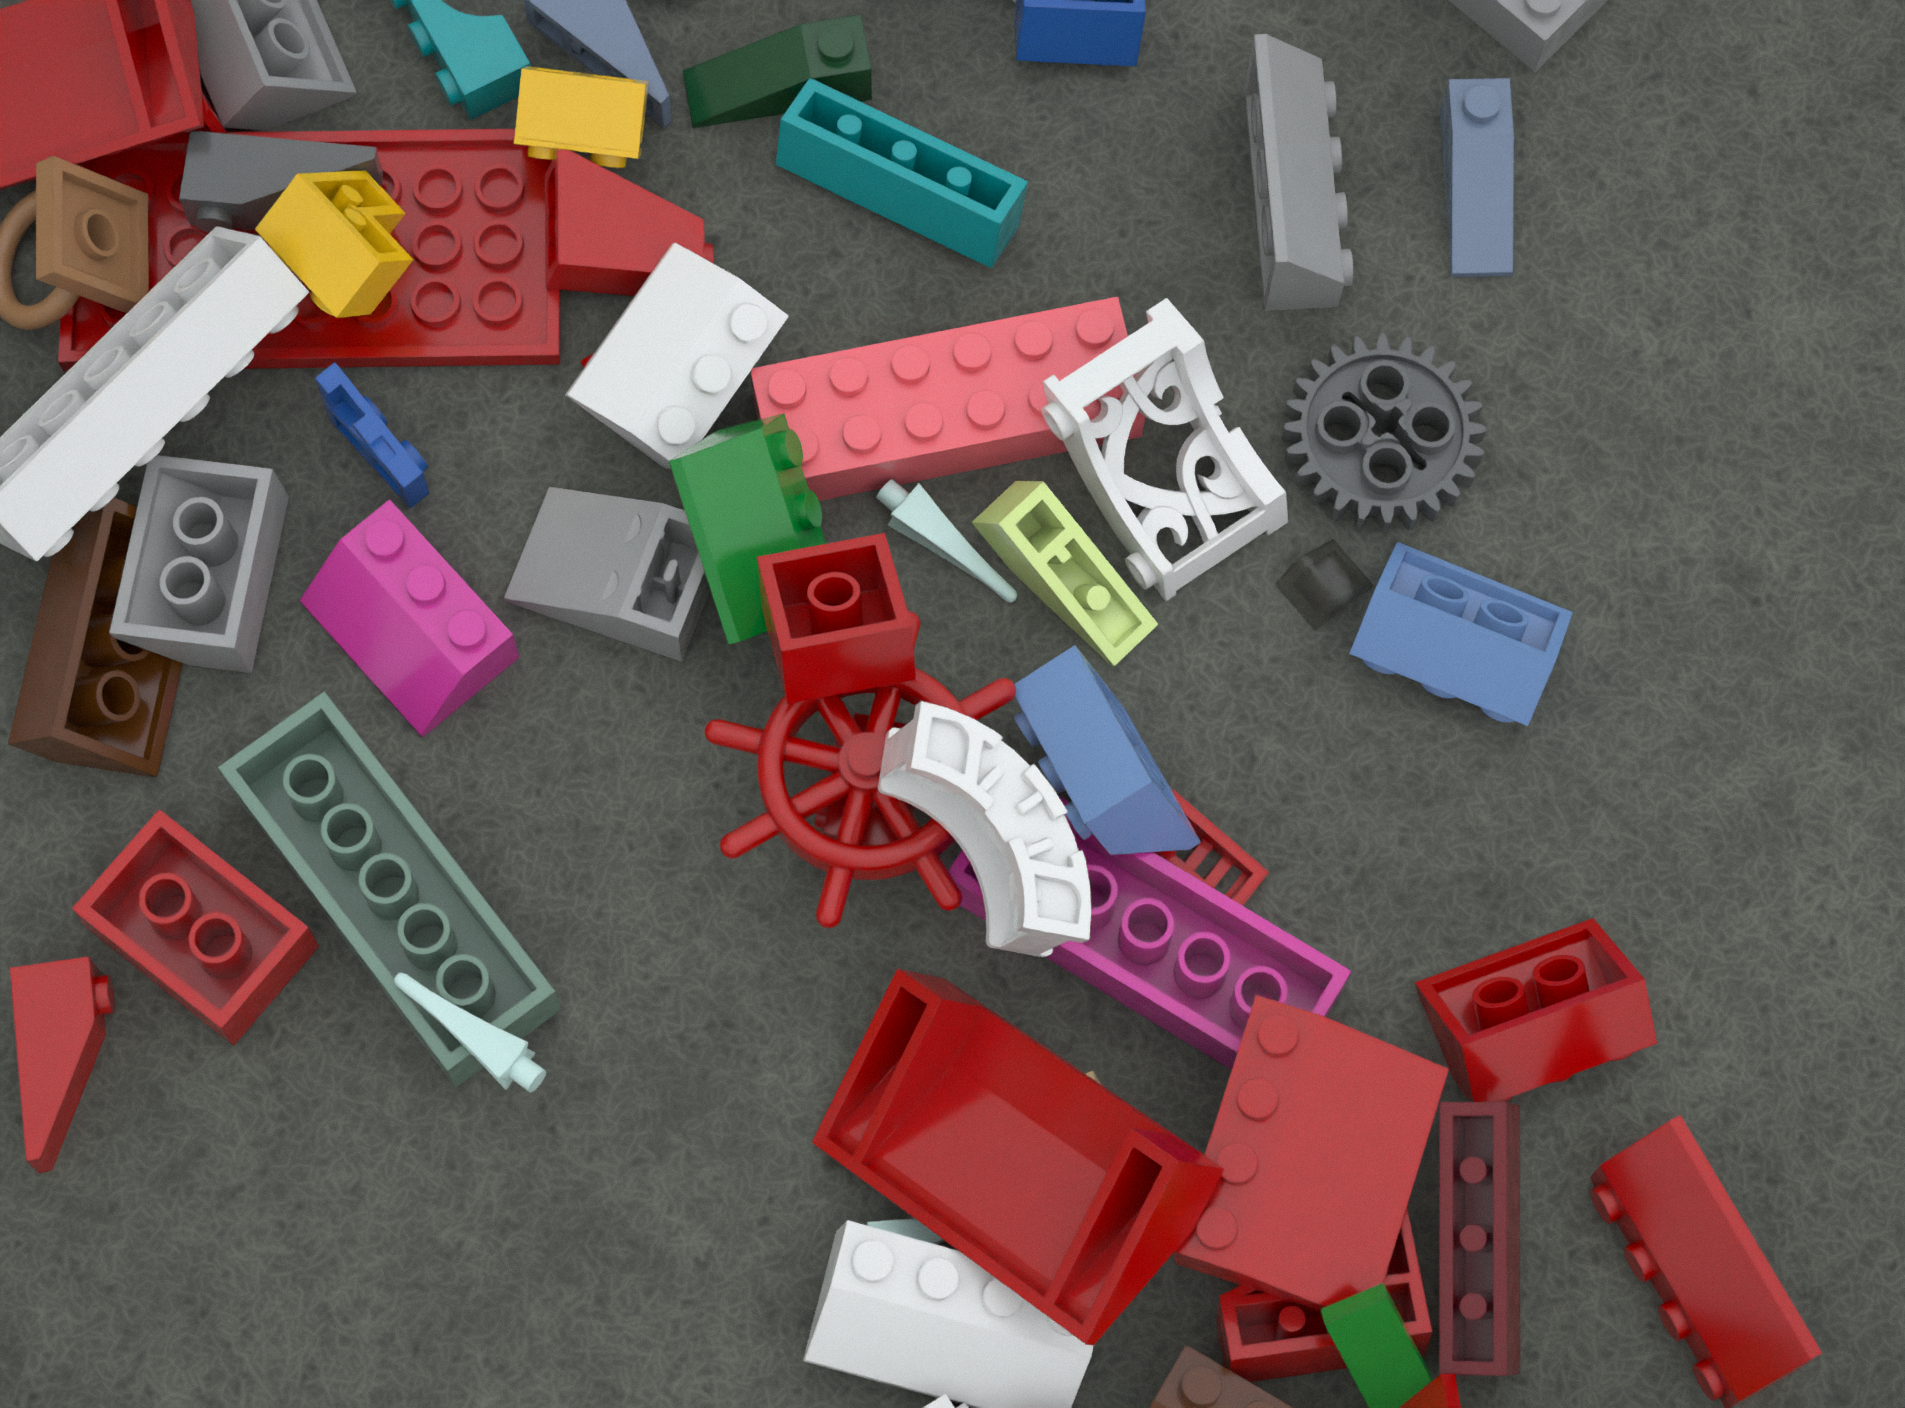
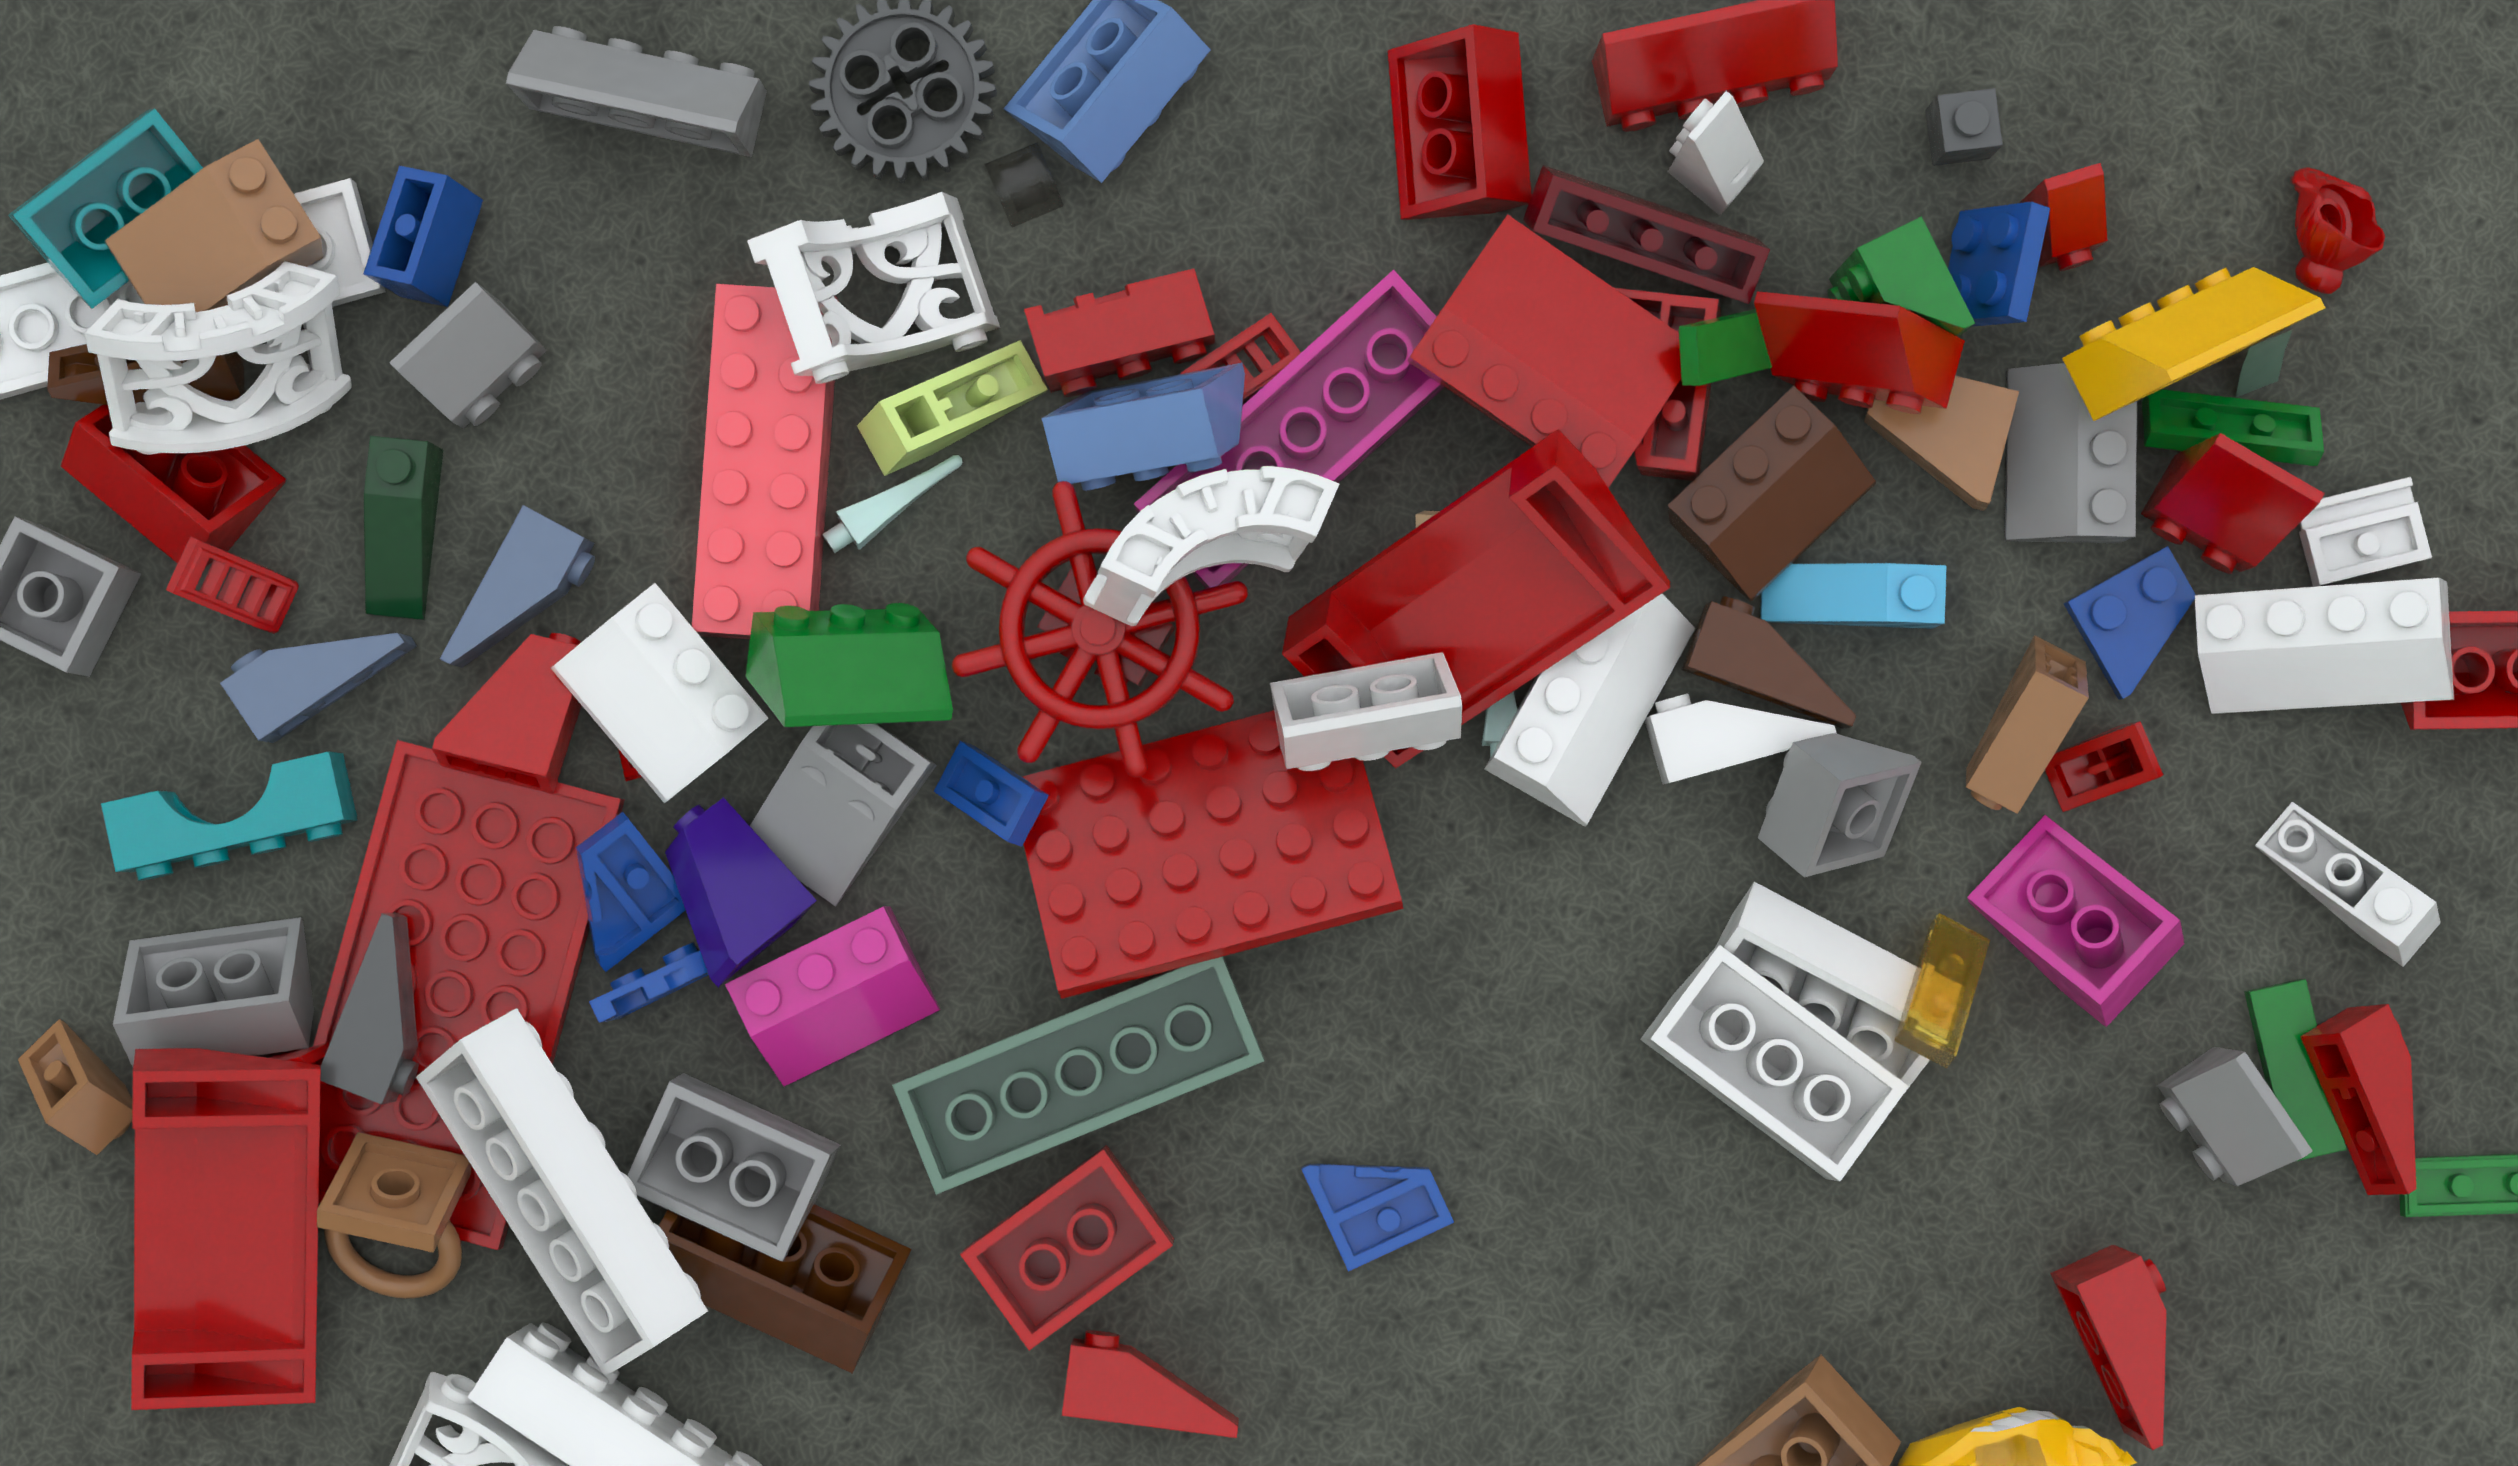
camera: 70 degrees left, 15 degrees up
(319, 1250) = (1376, 1207): none -> blue wing
(338, 239) = (470, 972): yellow brick -> none
(465, 385) = (624, 890): none -> blue wing
(492, 487) = (732, 888): none -> dark purple slope
(497, 1050) = (1260, 1017): light aqua piece -> none
(581, 115) = (398, 717): yellow hinge -> none
(664, 716) = (991, 793): none -> blue plate
(667, 952) = (1200, 854): none -> red plate
(761, 204) = (525, 578): none -> sand blue slope
(836, 618) = (968, 619): red brick -> none
(857, 1068) = (1367, 711): none -> white slope
(900, 172) = (533, 443): teal brick -> none
(971, 87) = (470, 357): none -> light grey slope
(1195, 713) = (1121, 332): none -> red wedge
(1595, 1287) = (1715, 153): none -> white slope

